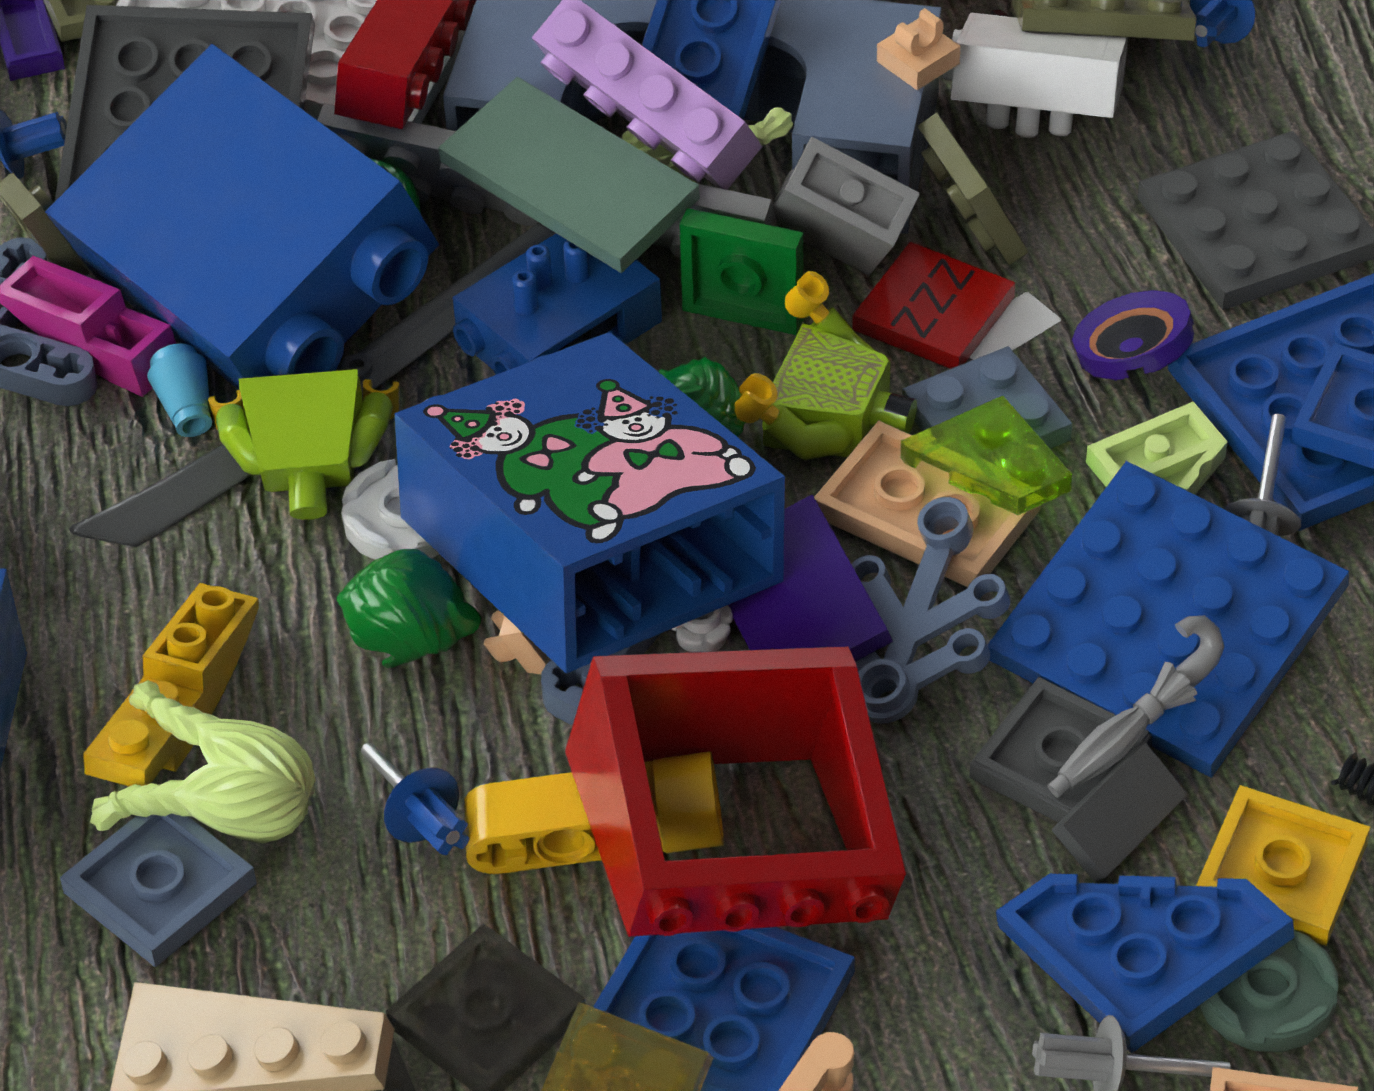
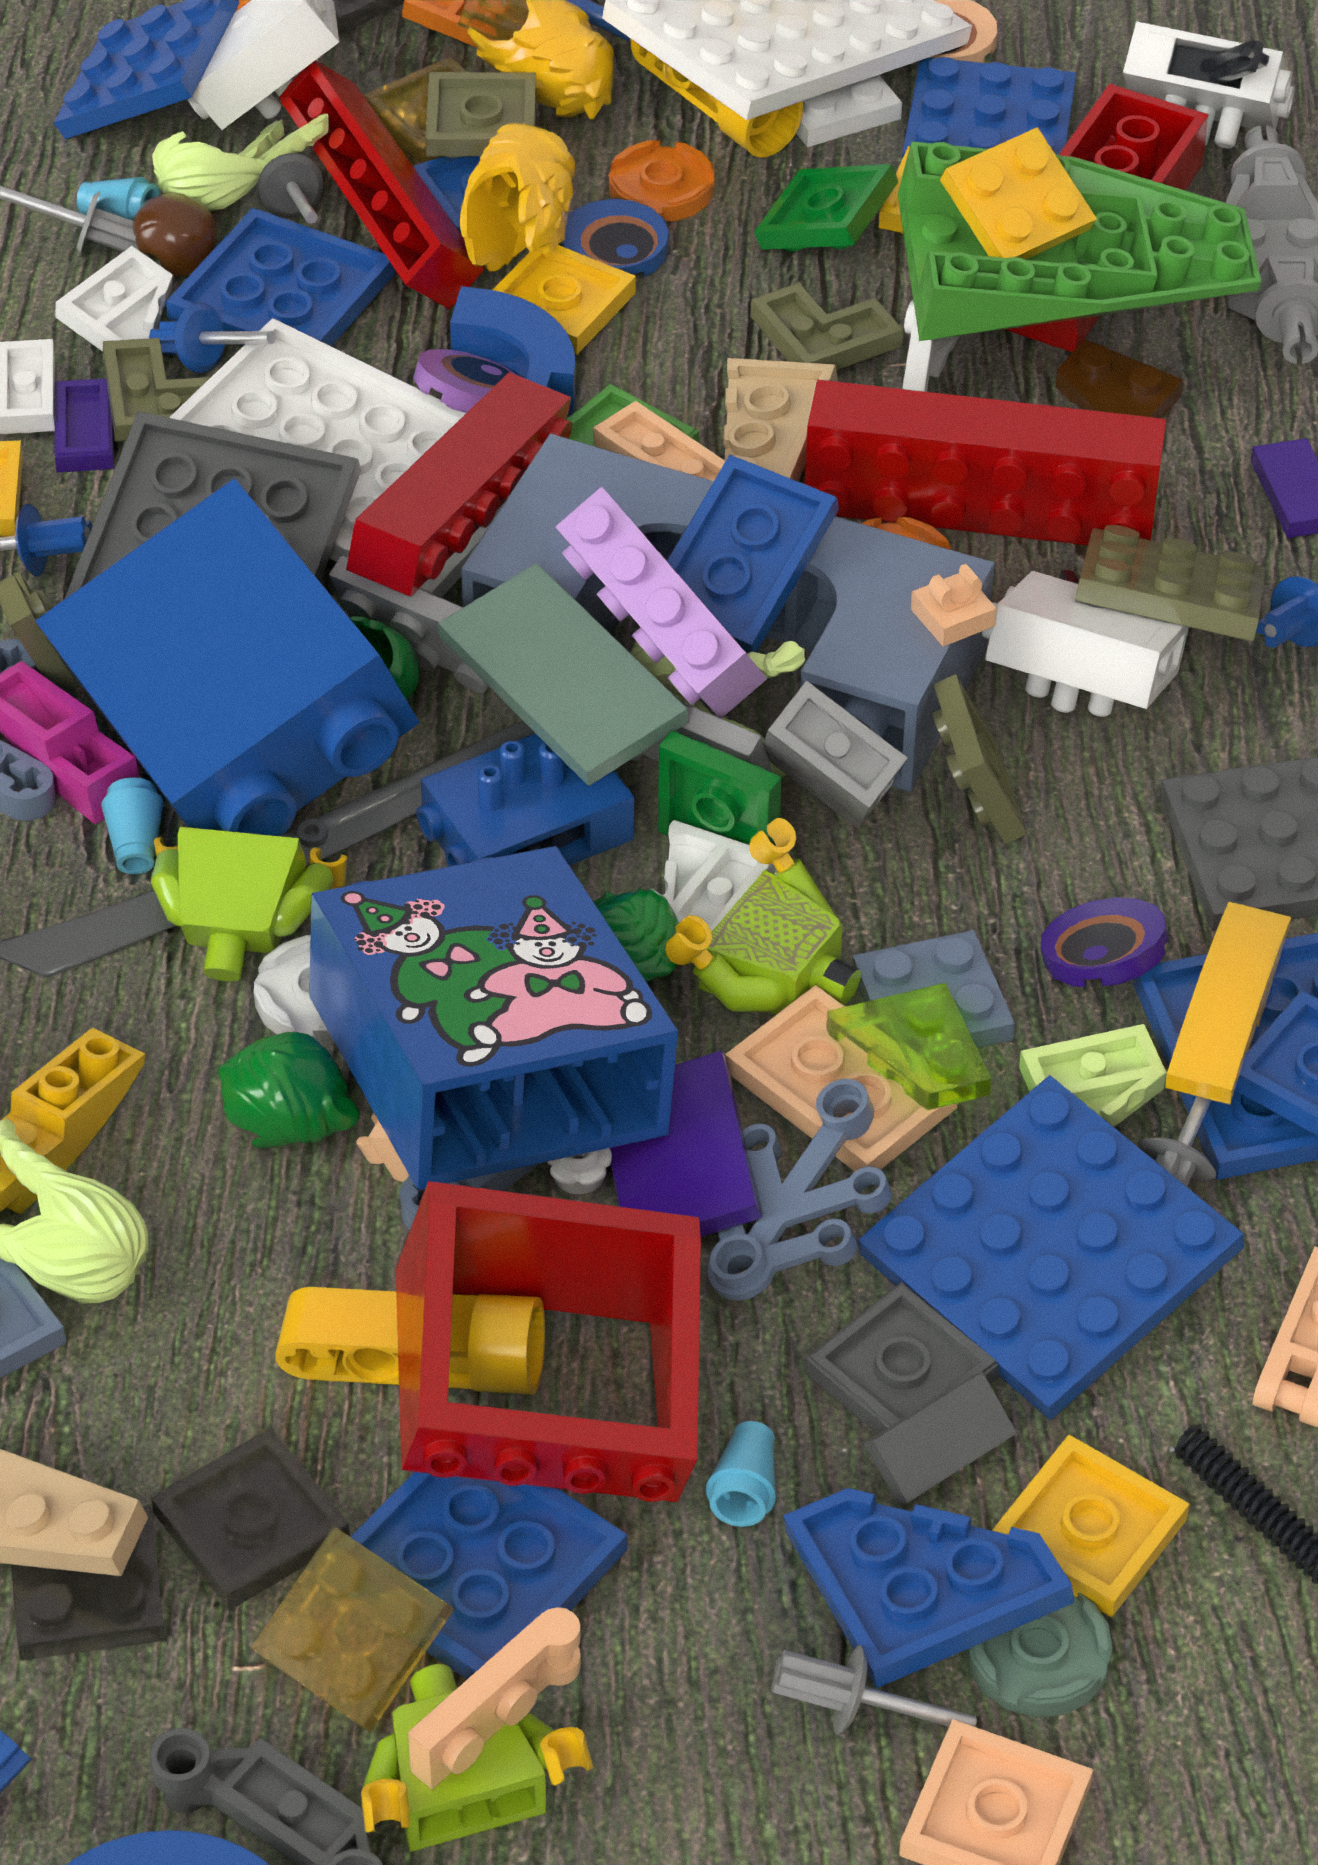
camera: 10 degrees right, 0 degrees up
(421, 804) = (244, 1295): blue piece -> none
(747, 335) = (707, 873): none -> white wing
(933, 306) = (912, 873): red tile -> none
(947, 884) = (744, 1476): none -> medium azure cone
(1017, 325) = (982, 909): white sticker -> none
(1173, 688) = (1024, 1322): light grey piece -> none
(1270, 367) = (1227, 1002): none -> yellow slope

